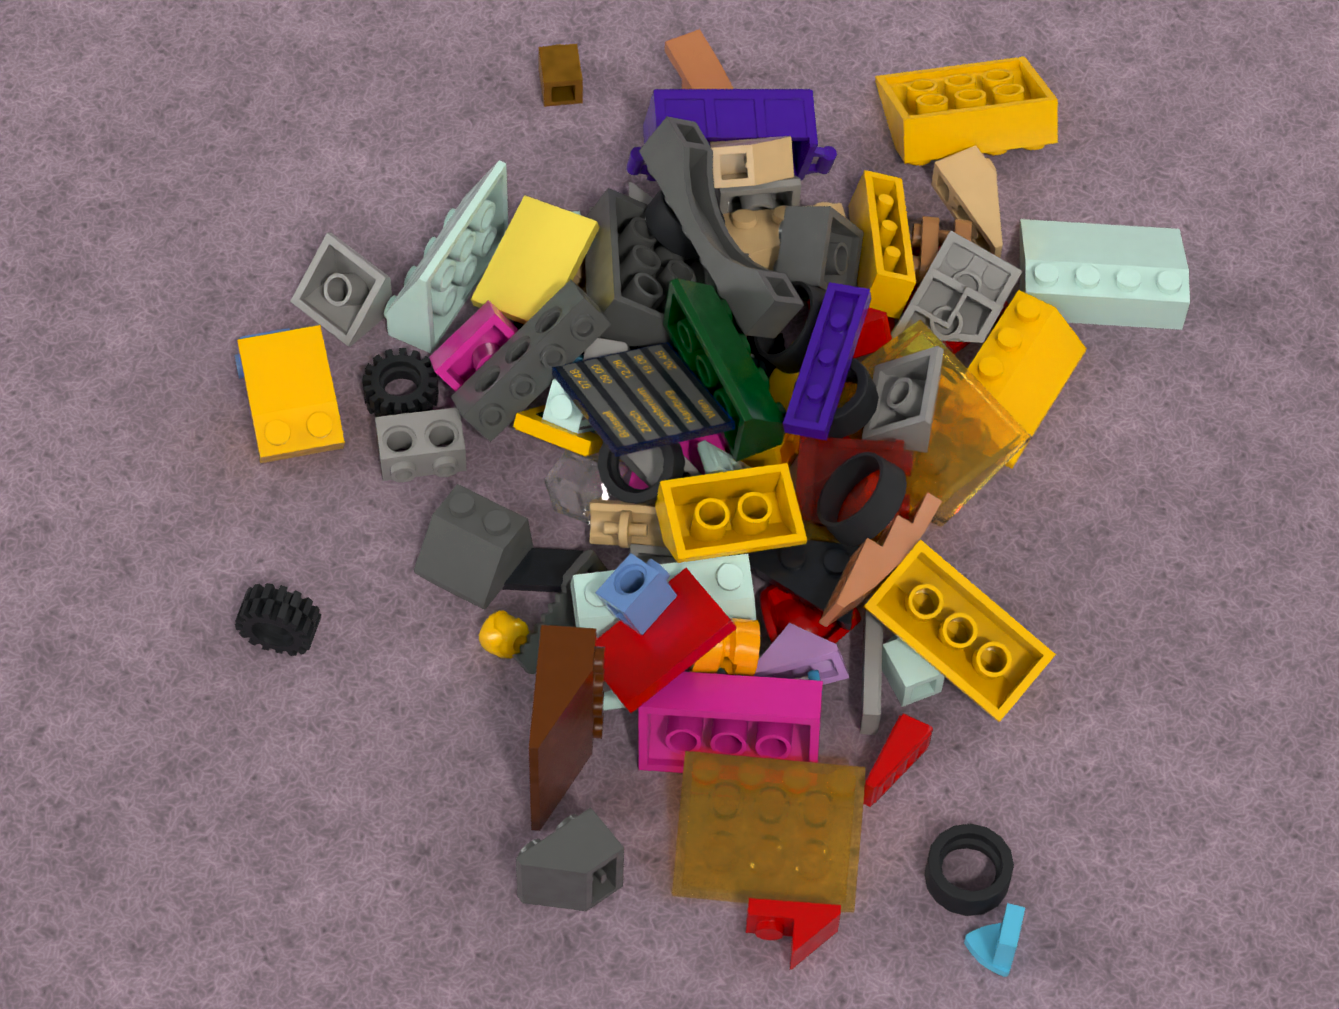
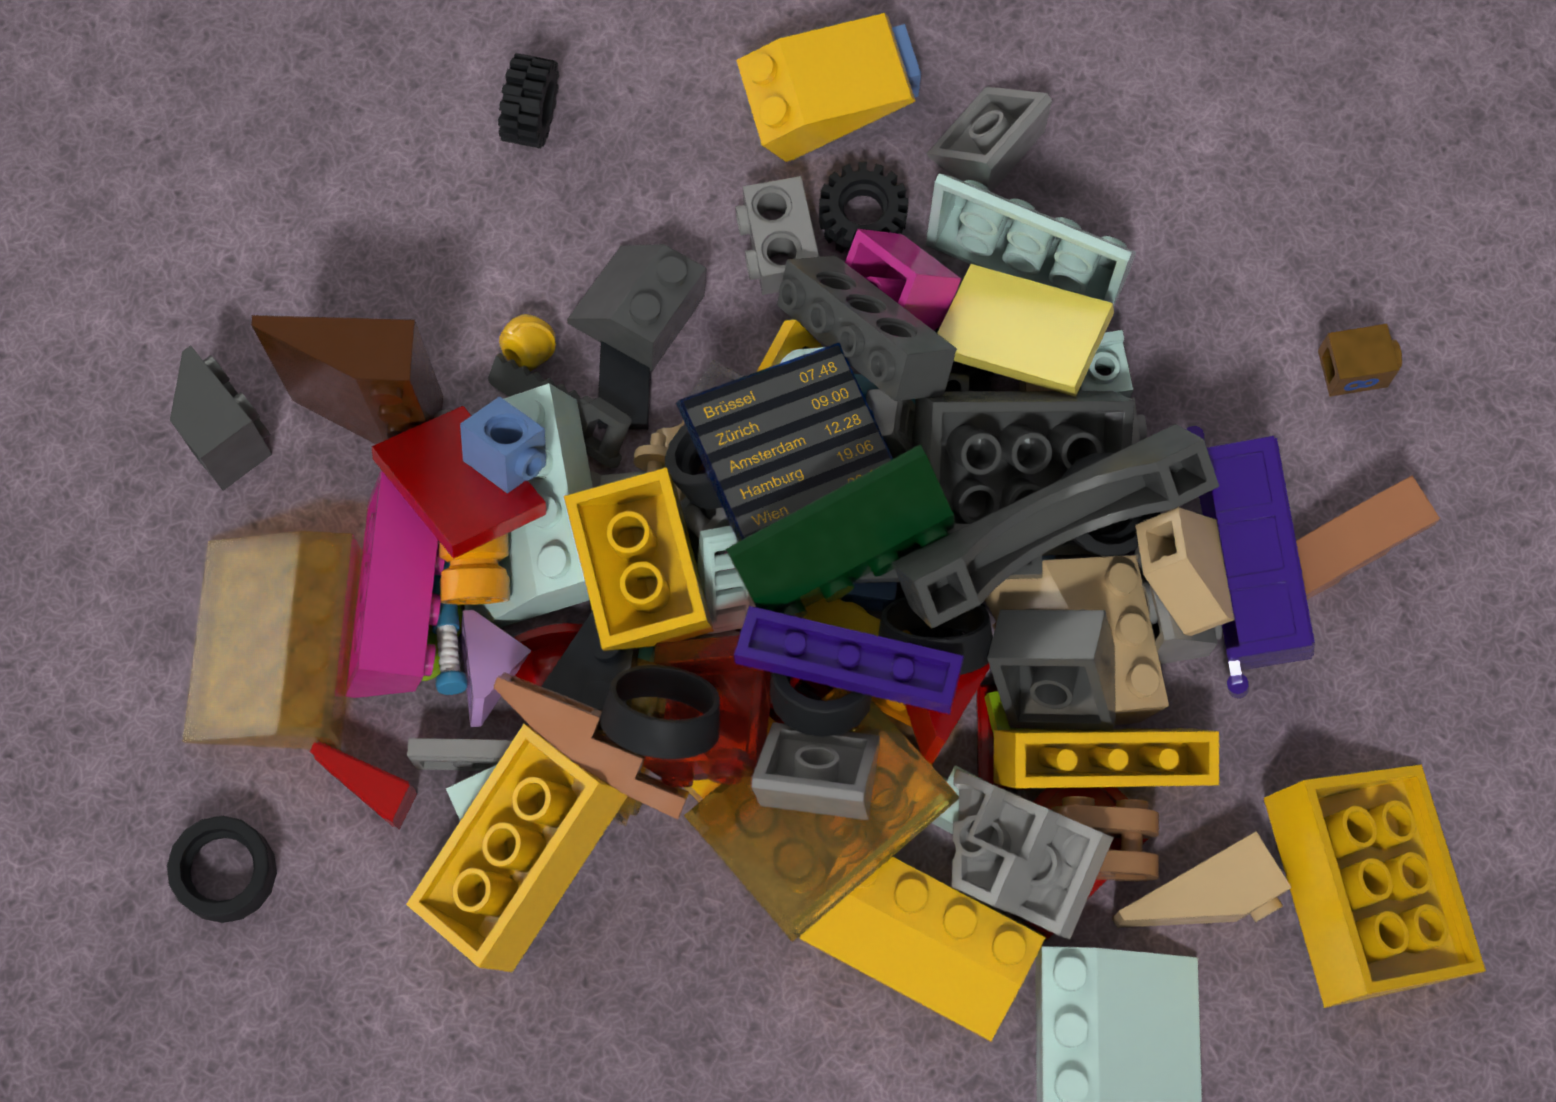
camera: 90 degrees right, 15 degrees up
(804, 921) = (155, 679): red slope -> none
(997, 943) = (129, 901): medium azure tile -> none

